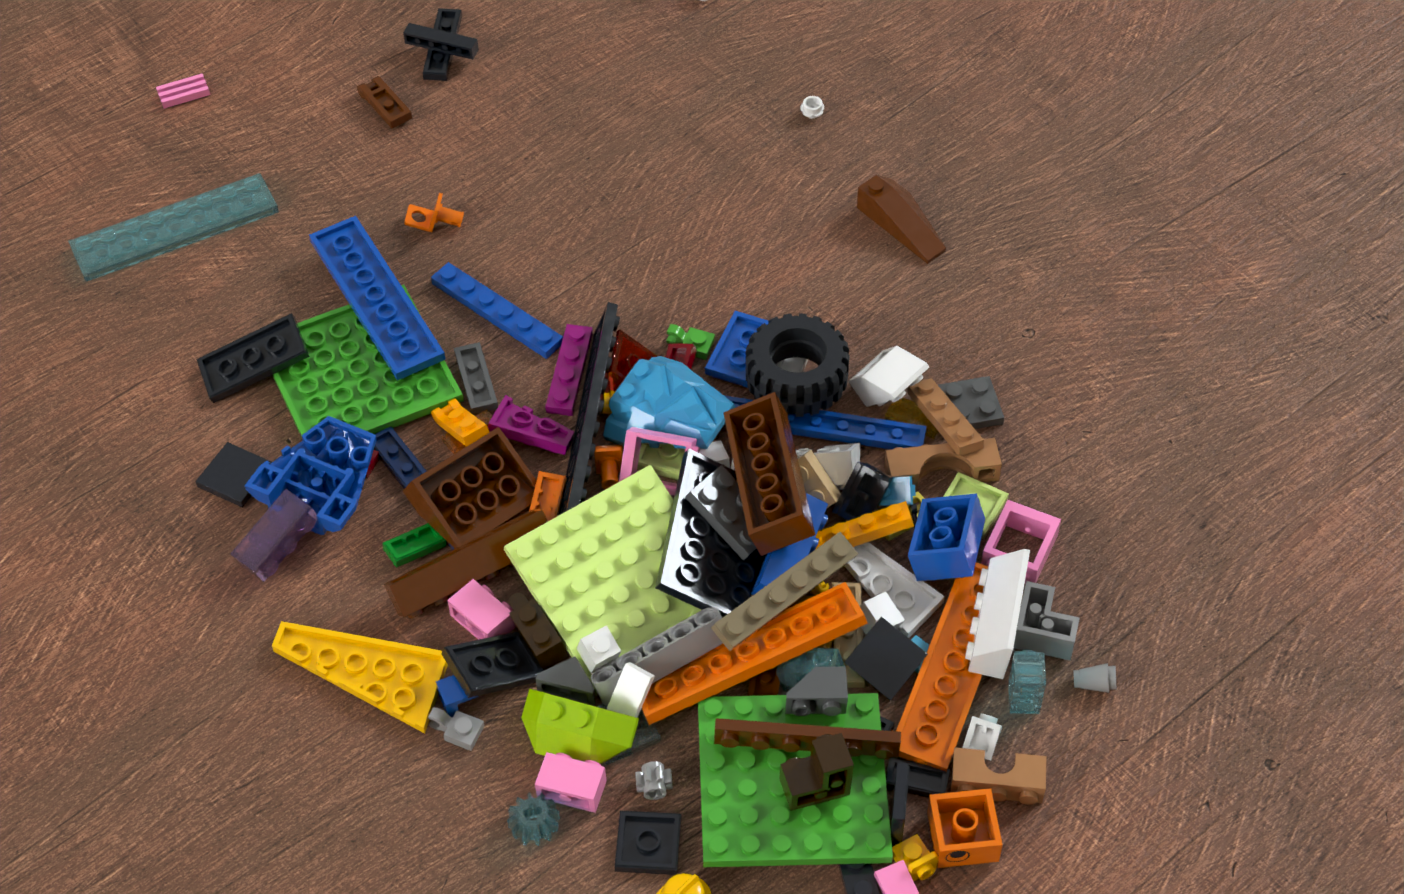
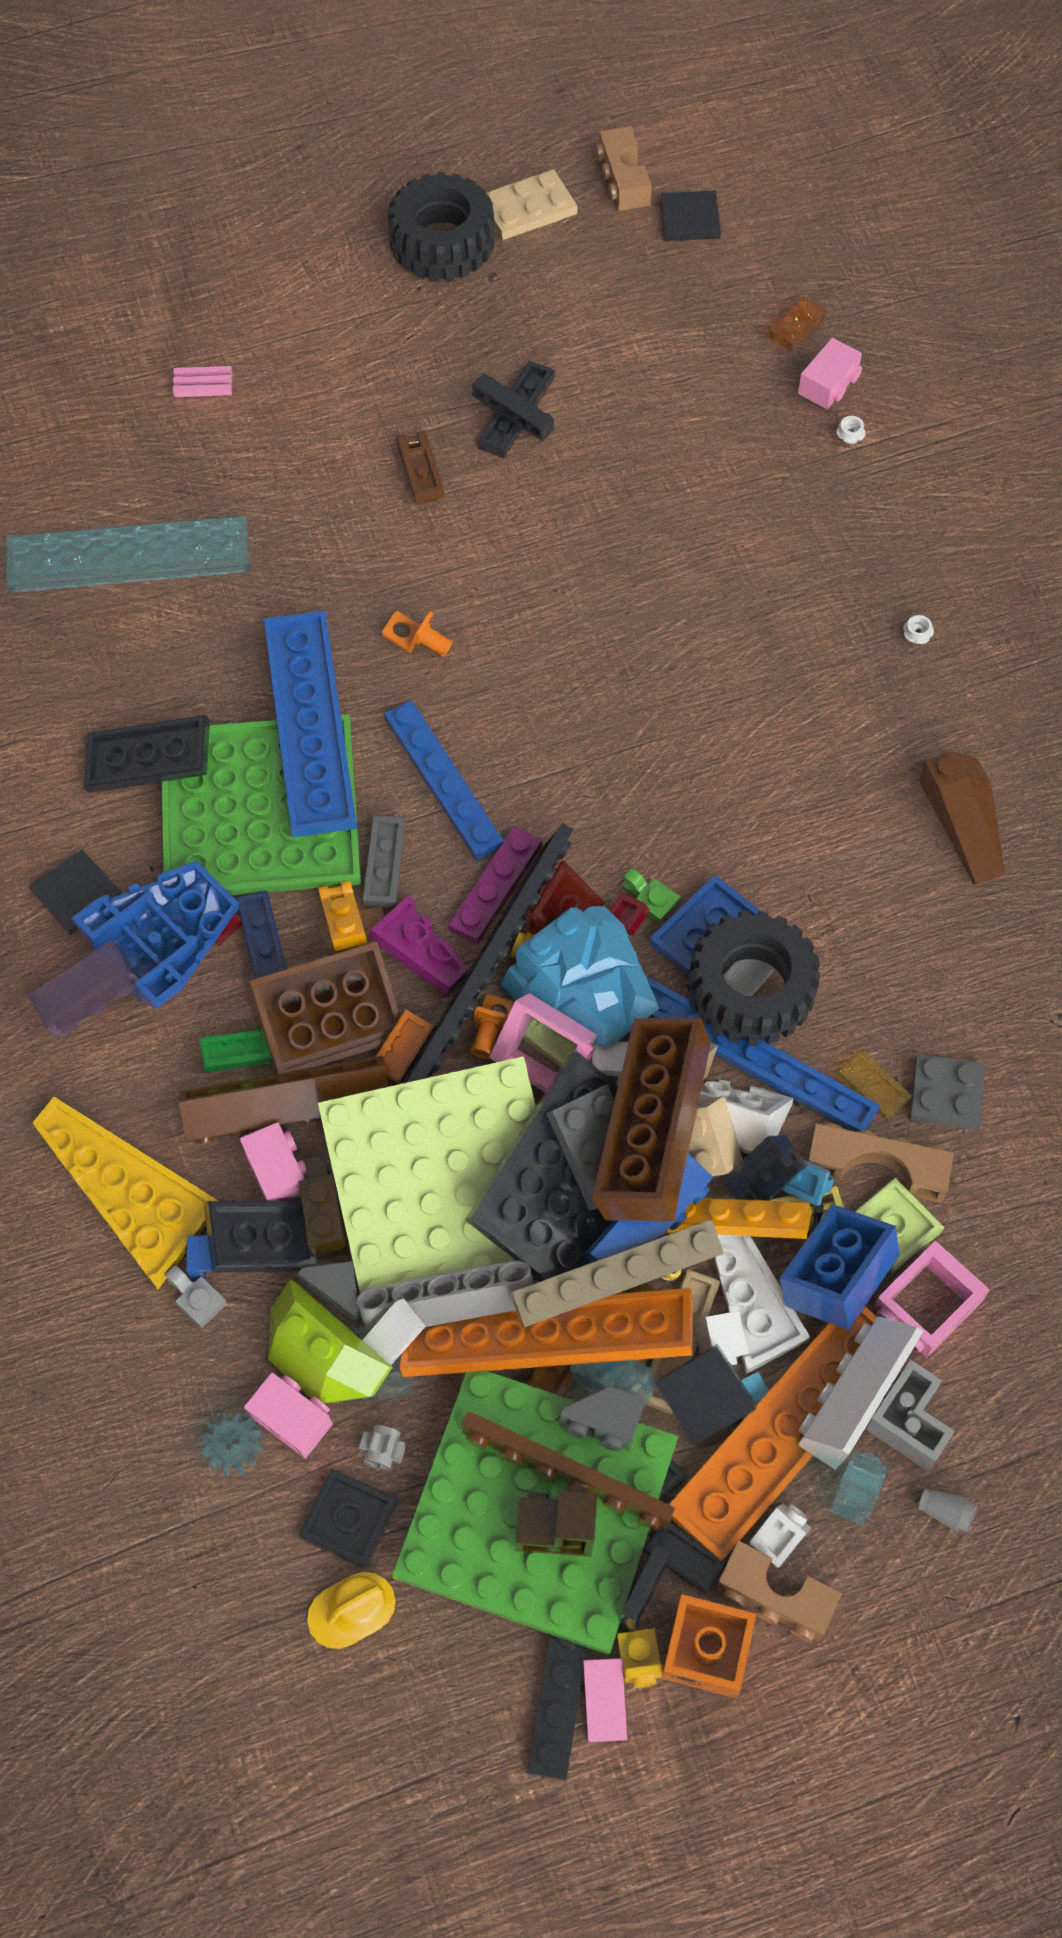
camera: 20 degrees right, 10 degrees up
(598, 649) = (378, 1267): white brick -> none
(888, 376) = (859, 1026): white slope -> none
(945, 417) = (906, 1104): medium nougat plate -> none

